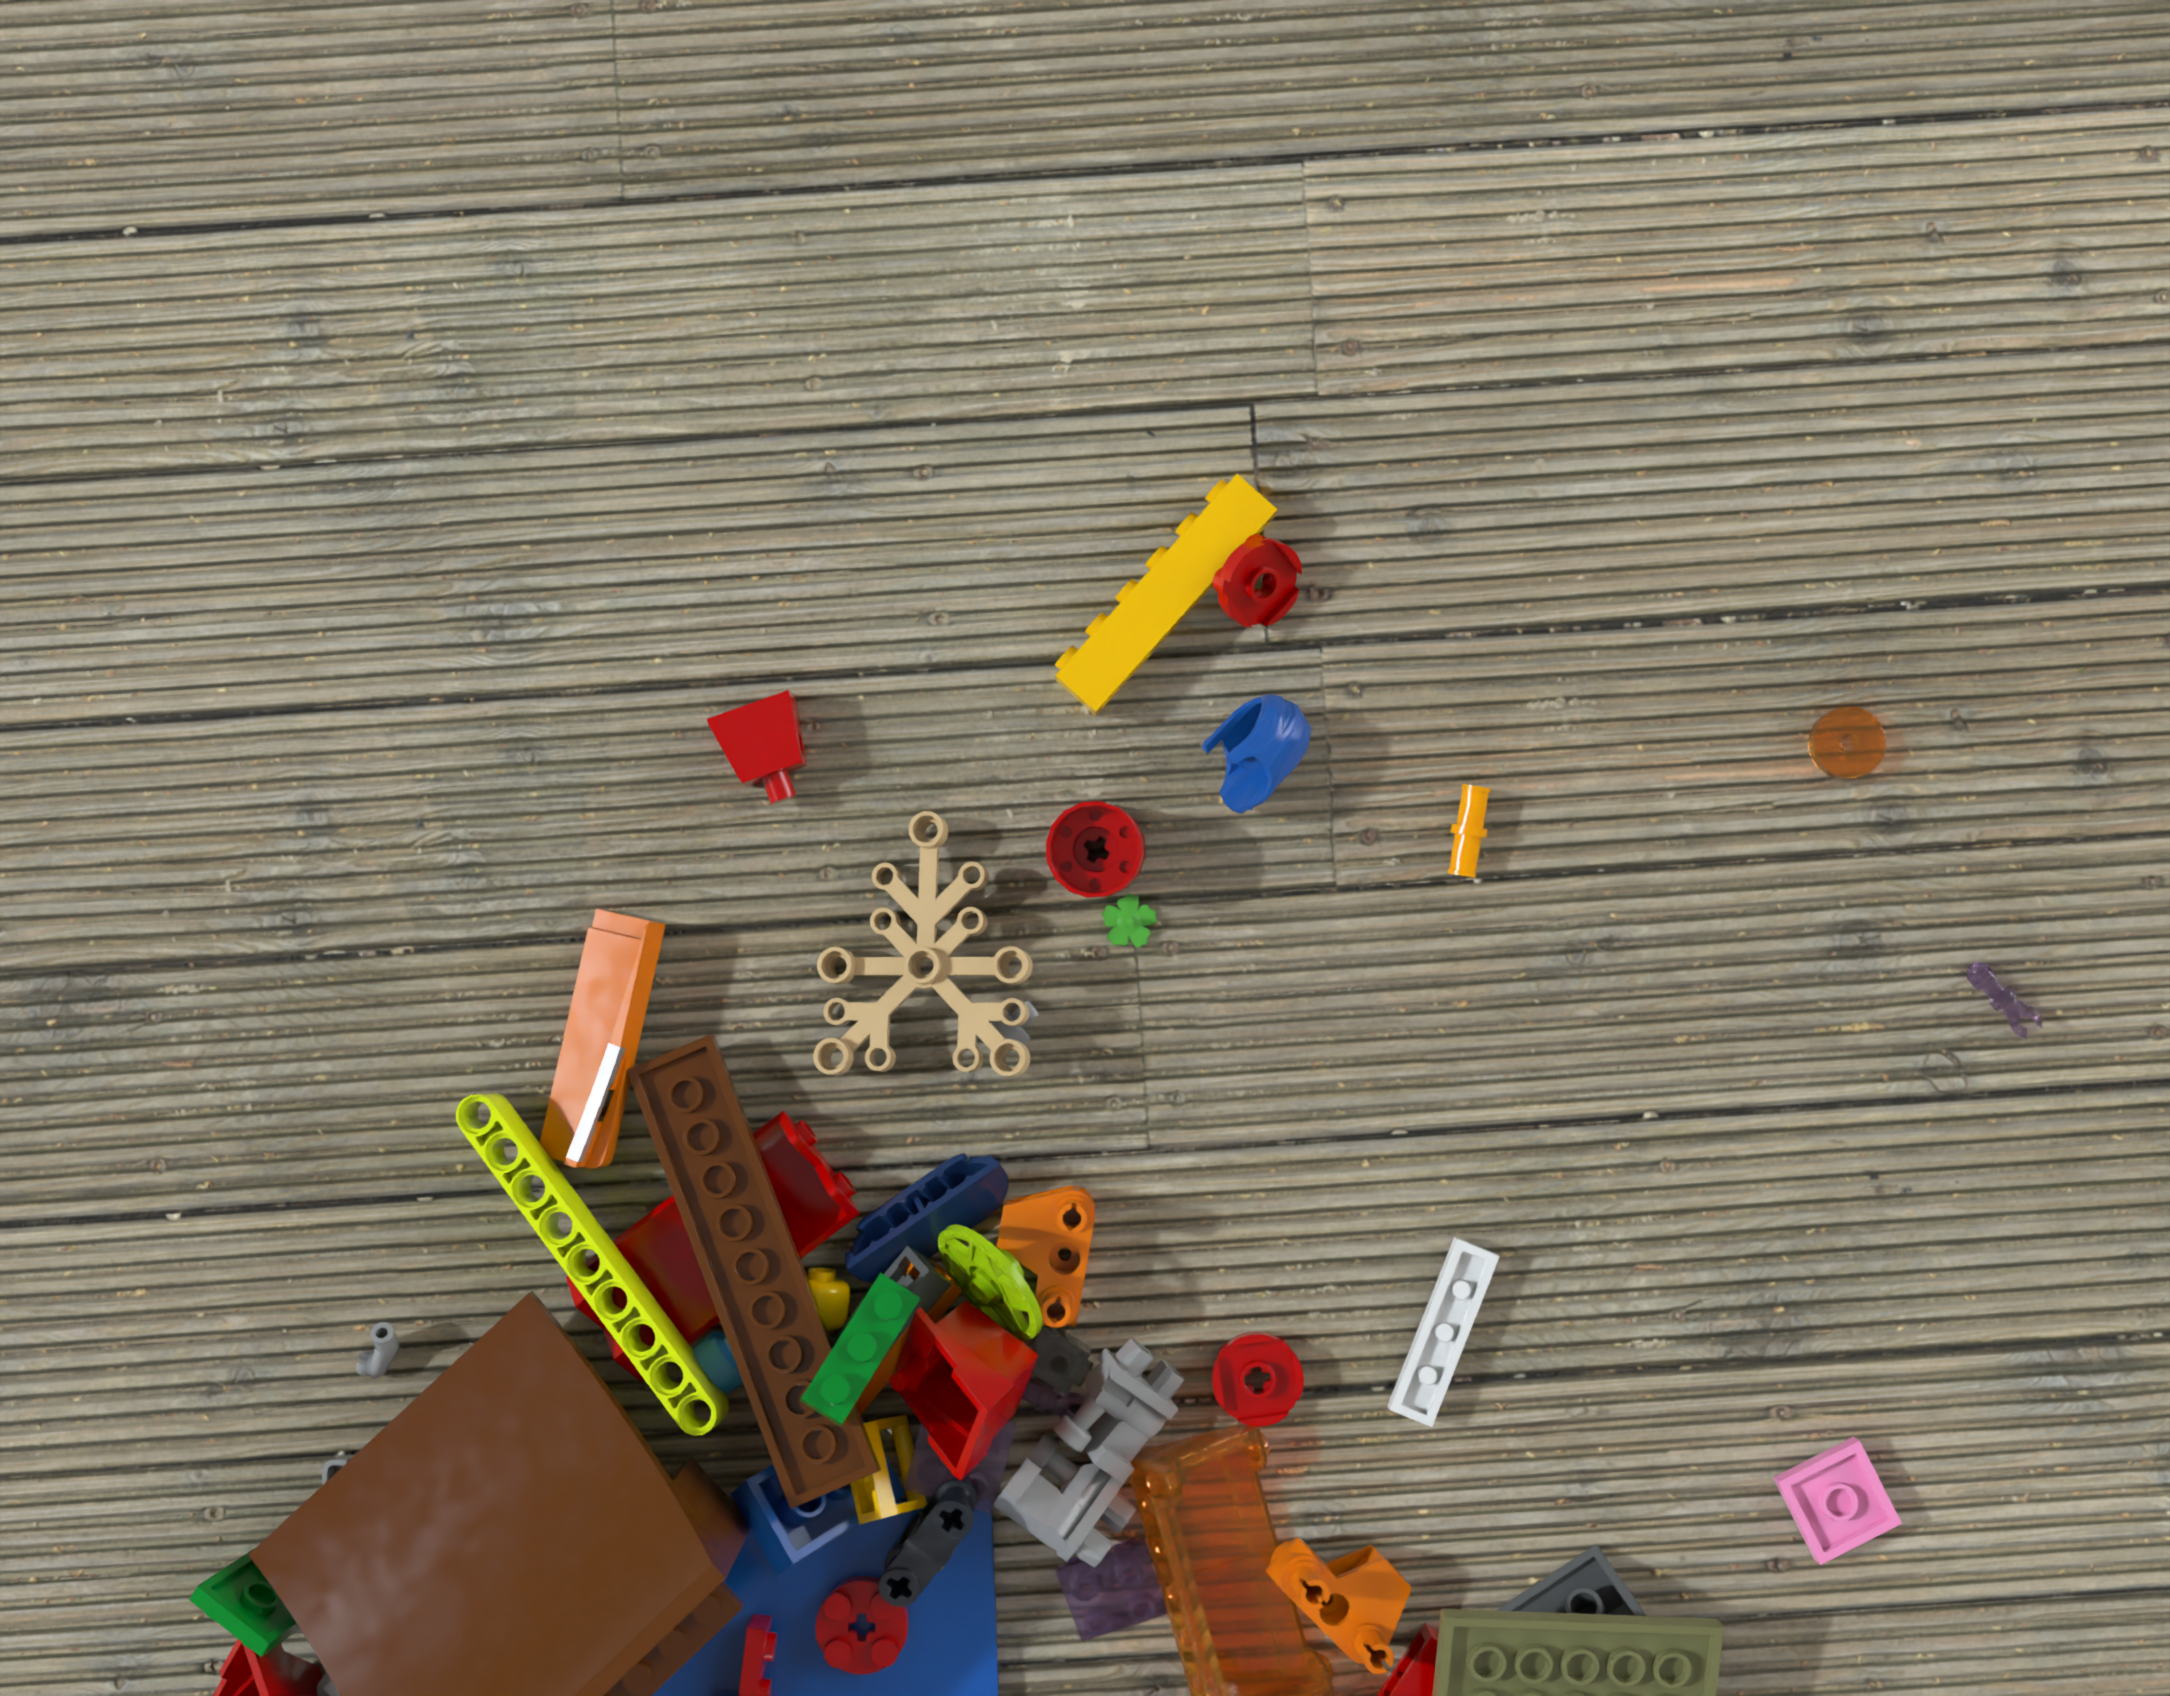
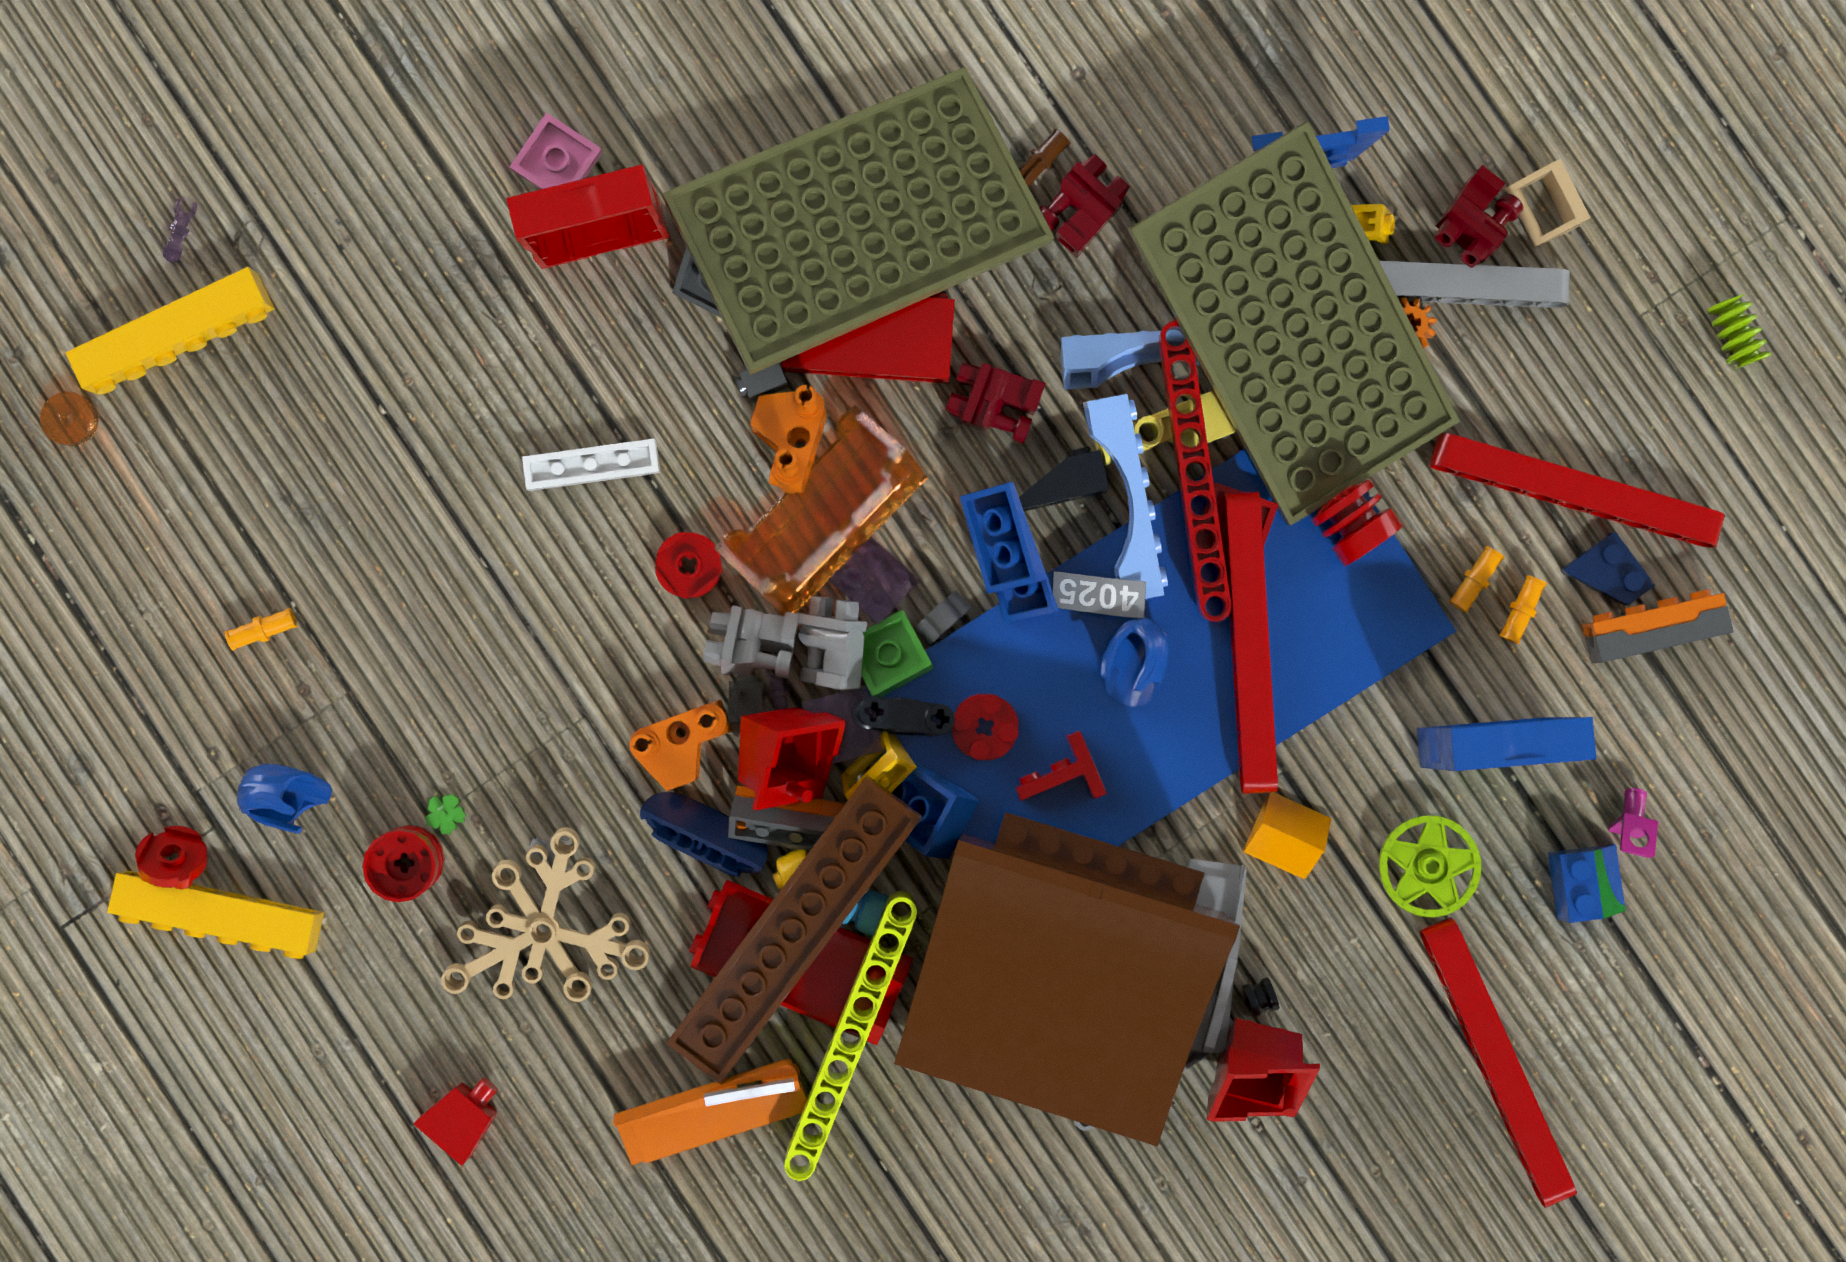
camera: 120 degrees left, 0 degrees up
(246, 1606) = (1189, 1124): green plate -> none
(386, 1347) = (990, 1134): light grey arm -> none
(860, 1349) = (795, 833): green brick -> none
(990, 1280) = (711, 772): lime wheel -> none
(1008, 1567) = (892, 655): none -> bright green plate
(1021, 1648) = (943, 617): none -> flat silver piece
(1430, 1593) = (761, 383): none -> dark grey brick
(1744, 1525) = (588, 217): none -> red tile
(1885, 923) = (170, 331): none -> yellow brick

